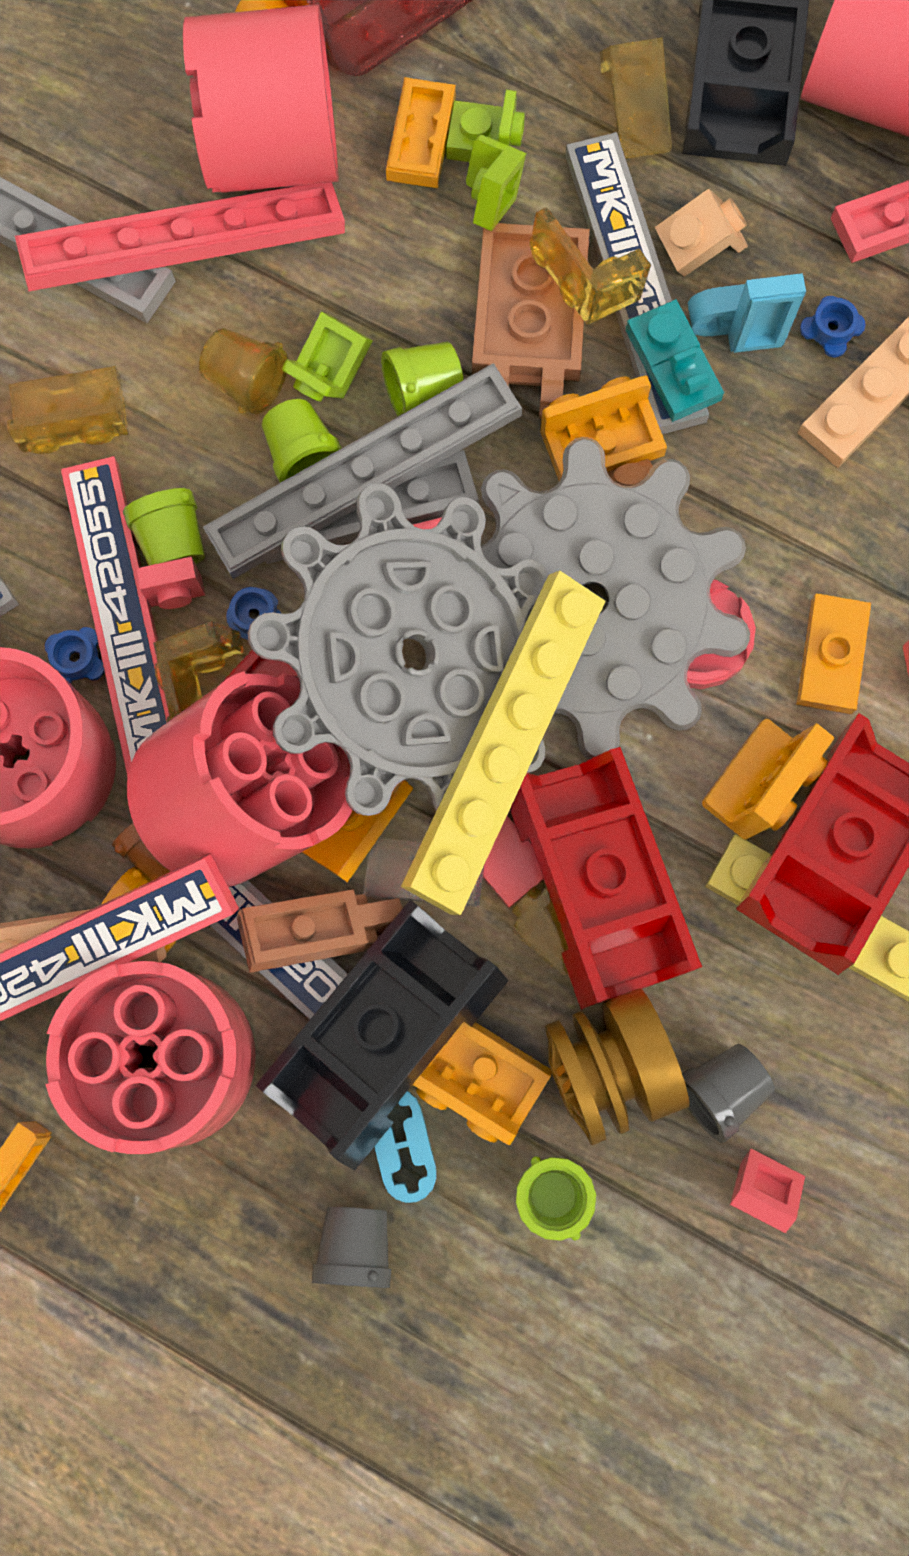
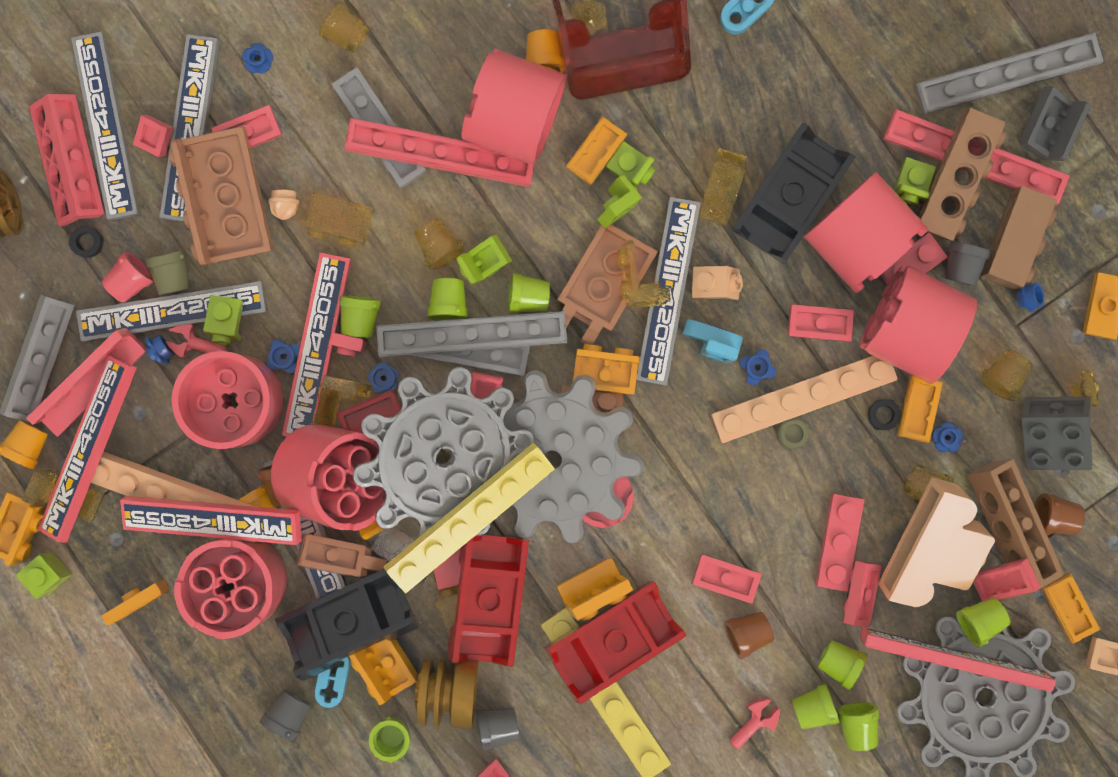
camera: 20 degrees right, 10 degrees up
(674, 360) = (662, 349): teal plate -> none
(834, 653) = (664, 540): light orange plate -> none

